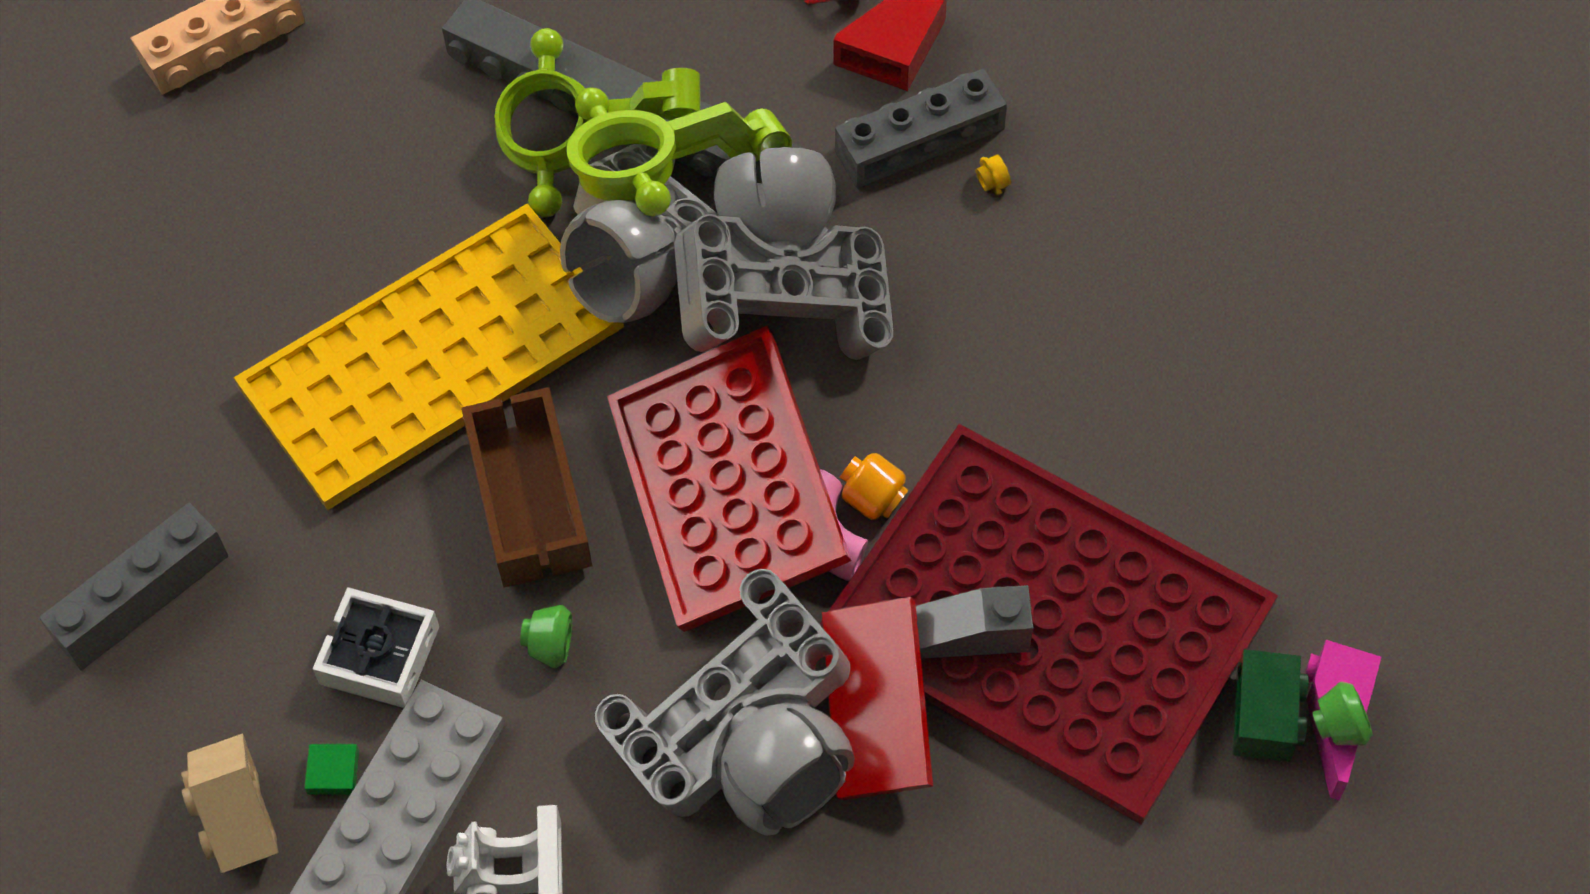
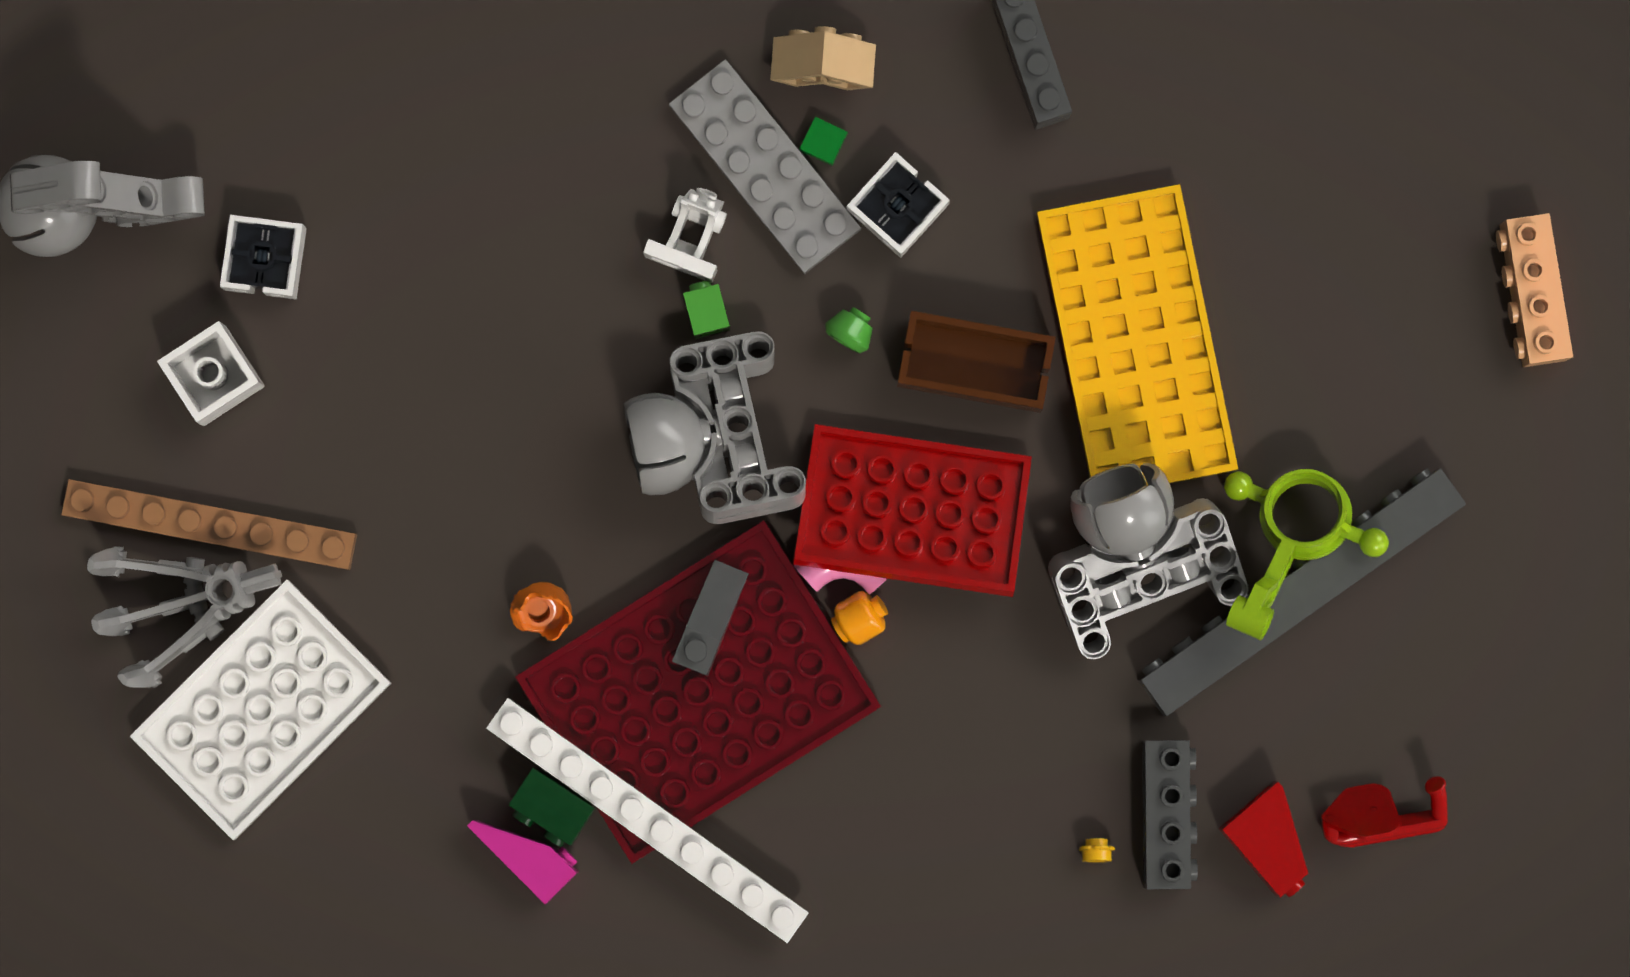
camera: 115 degrees right, 25 degrees up
(597, 803) = (706, 309): none -> bright green brick
(673, 139) = (1195, 669): lime piece -> none
(776, 238) = (1082, 634): light grey beam -> none
(882, 698) = (676, 535): tile -> none
(1047, 821) = (542, 610): none -> orange hair
(1220, 608) = (647, 820): none -> white plate
(1343, 716) = (506, 844): bright green cone -> none

